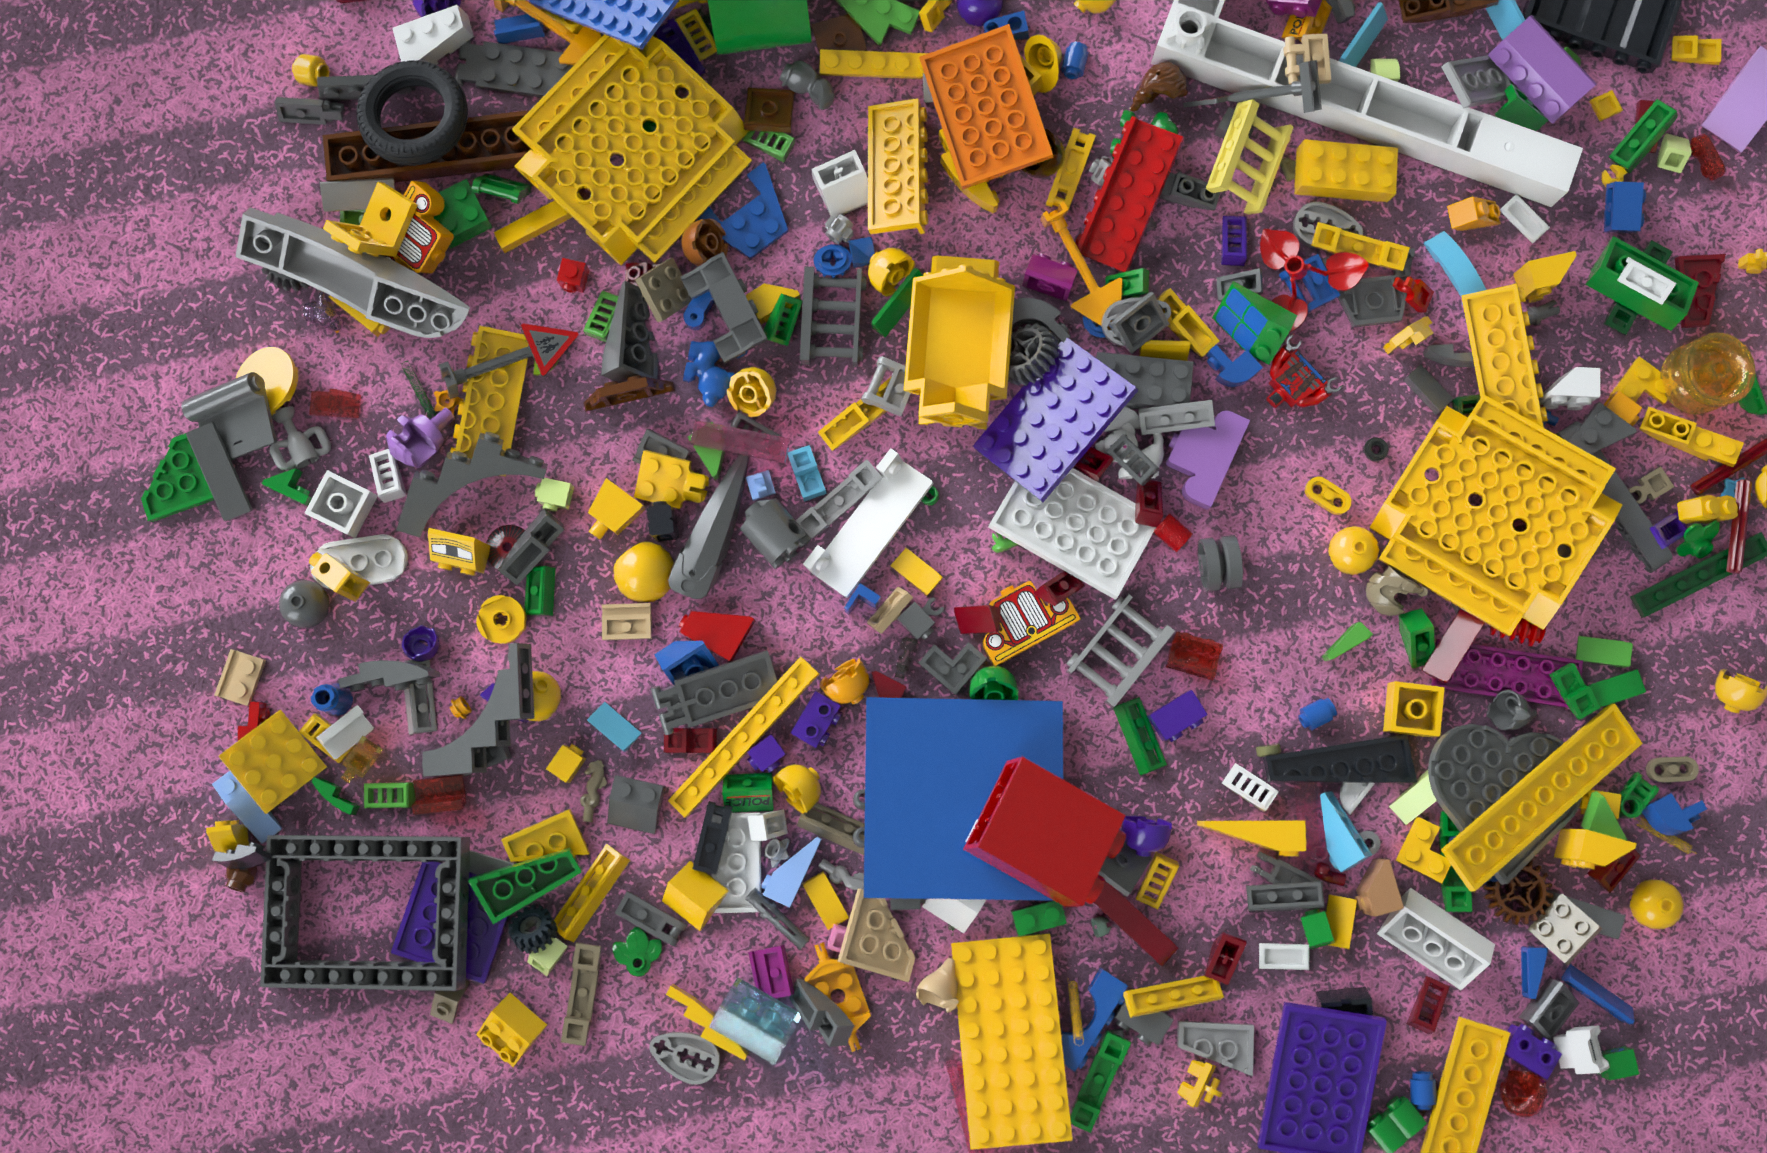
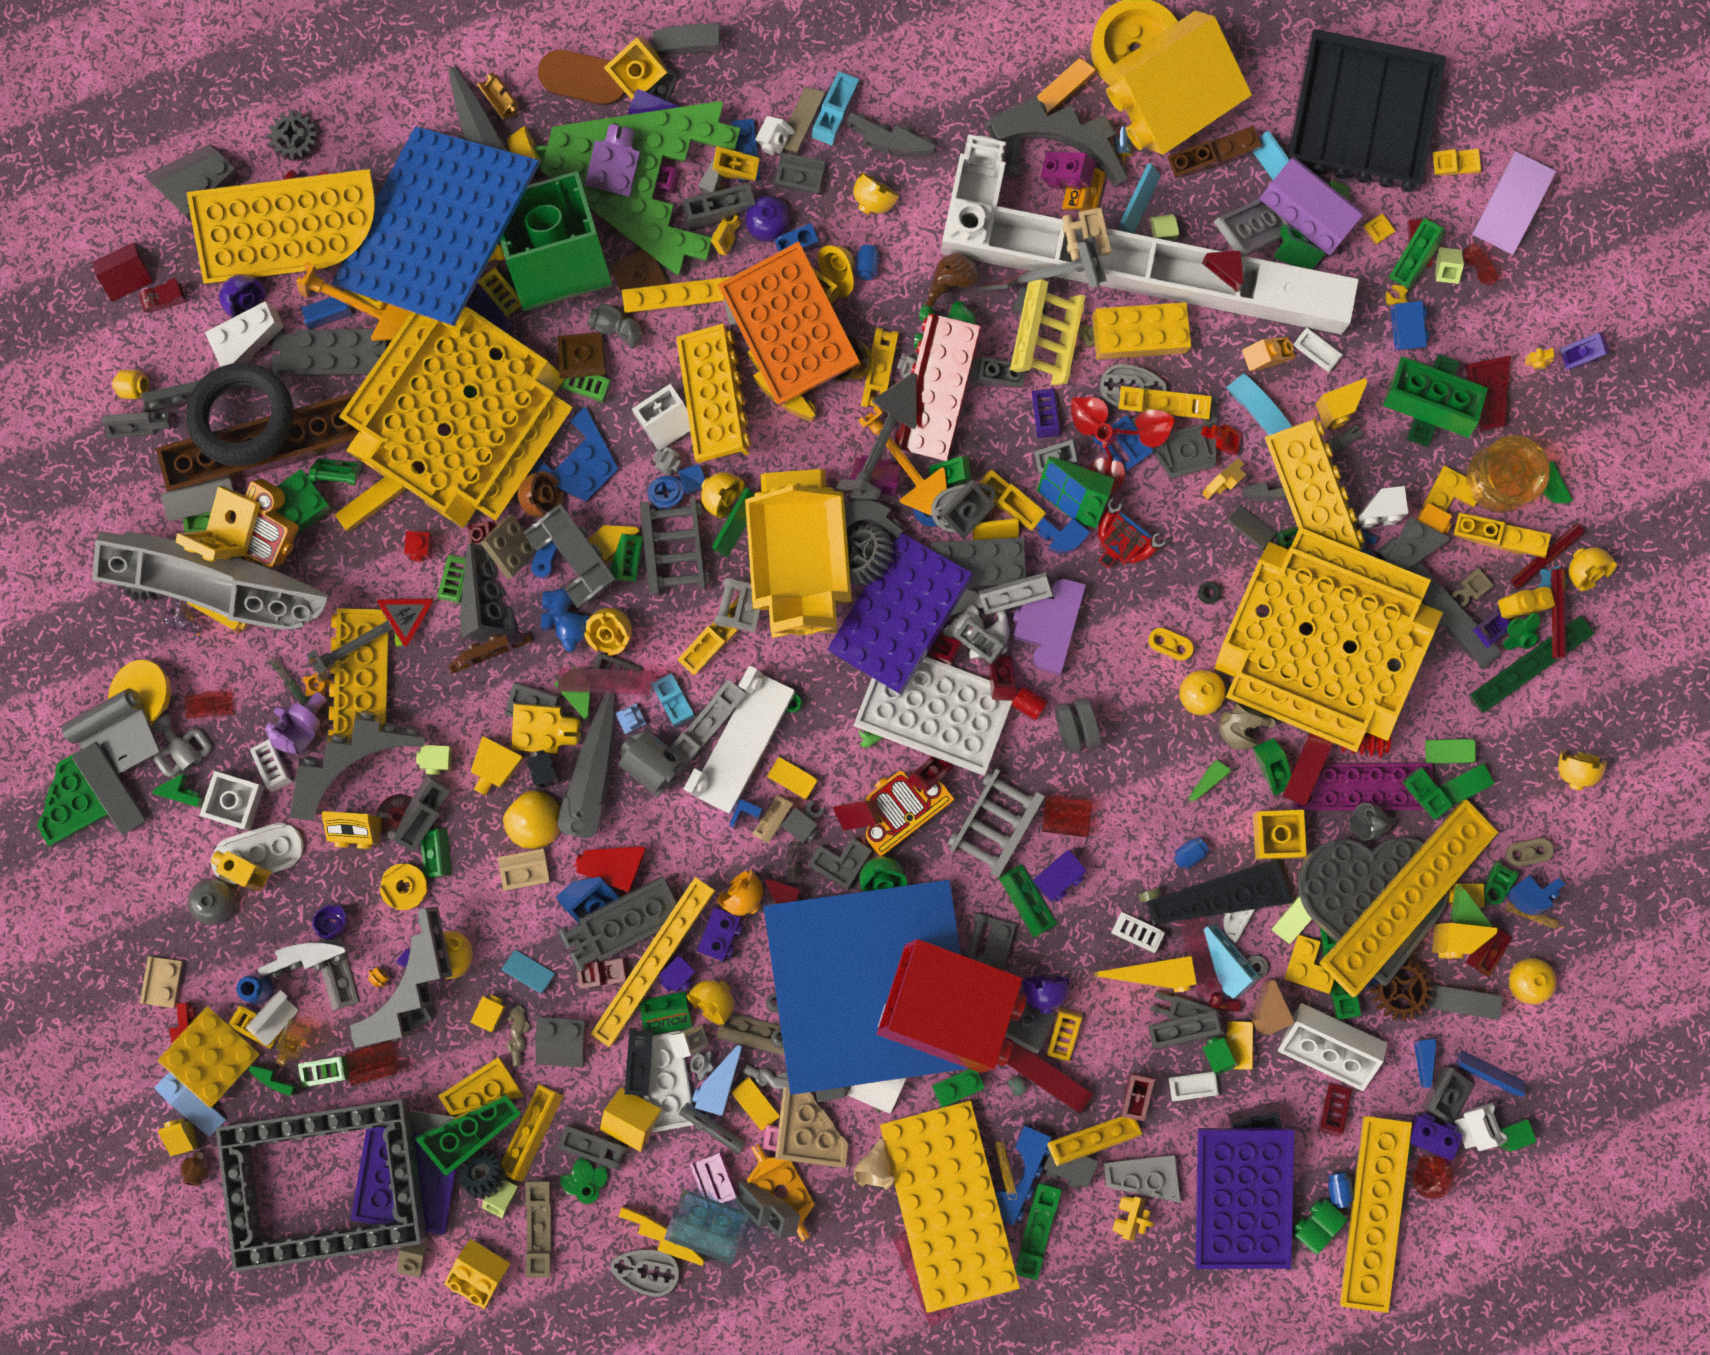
camera: 15 degrees left, 0 degrees up
(242, 857) = (196, 1152): black slope -> none
(1088, 205) = (900, 405): none -> dark grey piece
(1102, 774) = (997, 942): none -> dark grey plate
(1448, 114) = (1226, 266): none -> dark red slope
(1565, 929) = (1448, 1018): plate -> none
(1646, 281) = (1435, 396): white panel -> none

